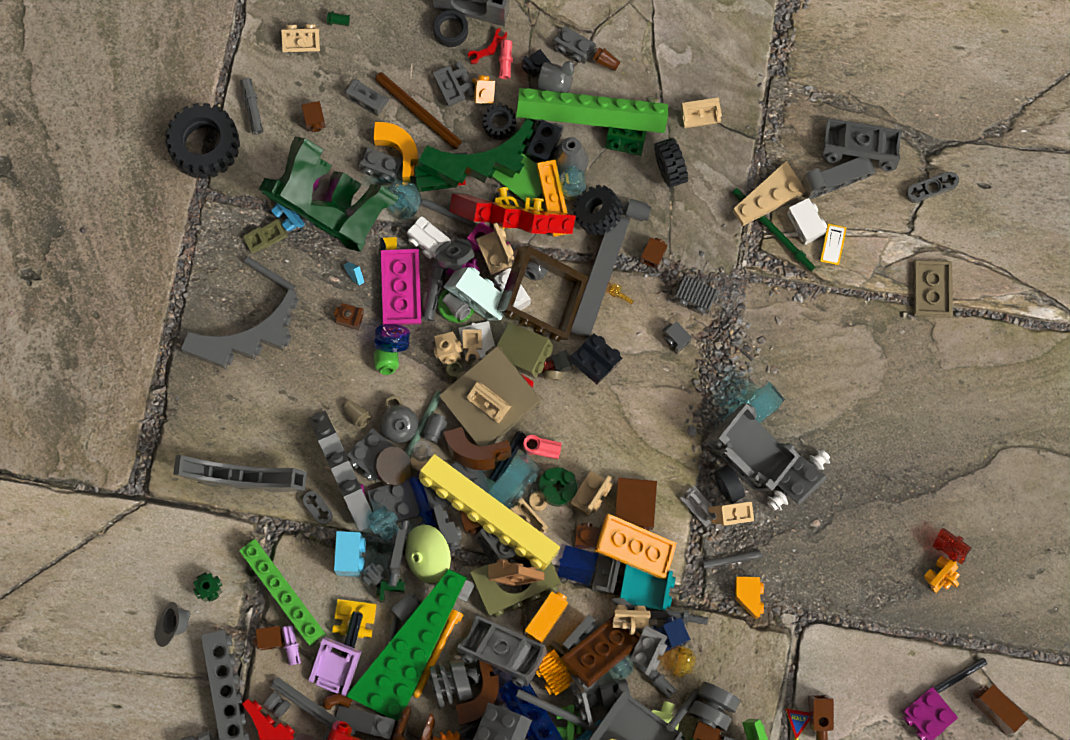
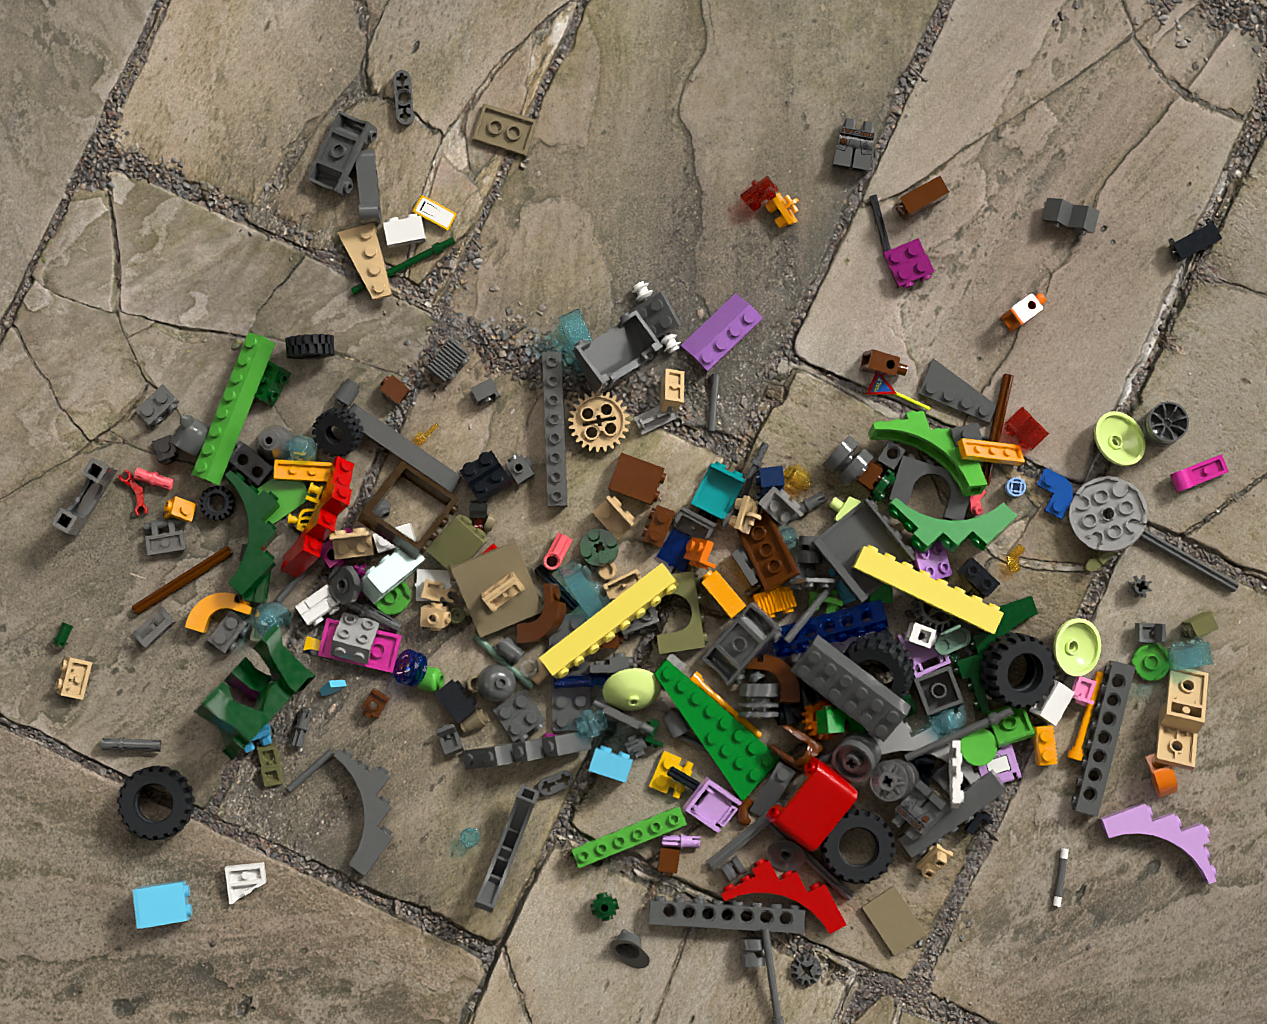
camera: 70 degrees left, 10 degrees up
(108, 171) = (162, 904): none -> medium azure slope
(150, 241) = (244, 879): none -> white wing
(240, 437) = (467, 837): none -> clear light blue wheel
(308, 254) = (301, 728): none -> dark grey axle
(313, 116) = (160, 686): reddish brown brick -> none
(332, 395) = (450, 740): none -> dark grey bracket
(372, 390) = (456, 700): none -> black brick
(392, 466) = (537, 700): dark brown tile -> none
(406, 278) = (354, 638): none -> light grey bracket
(446, 719) = (790, 713): none -> black bracket
(447, 15) = (91, 528): black tyre -> none
(458, 307) = (396, 596): light grey cone -> none
(513, 573) = (672, 613): medium nougat plate -> none
(580, 581) = (698, 553): none -> orange bracket
(606, 59) = (182, 379): reddish brown cone -> none
(609, 395) = (523, 475): none -> dark grey brick
(636, 546) = (679, 490): light orange tile -> none
(660, 412) = (554, 429): none -> dark grey brick
(665, 460) = (595, 404): none -> tan gear
(683, 710) = (843, 490): dark grey bar -> none
(701, 112) = (264, 301): tan hinge -> none
(729, 484) = (643, 384): black tyre -> none
(748, 595) = (751, 397): light orange slope -> none
(803, 548) = (722, 332): none -> medium lavender slope
(1034, 627) = (854, 140): none -> dark grey hips

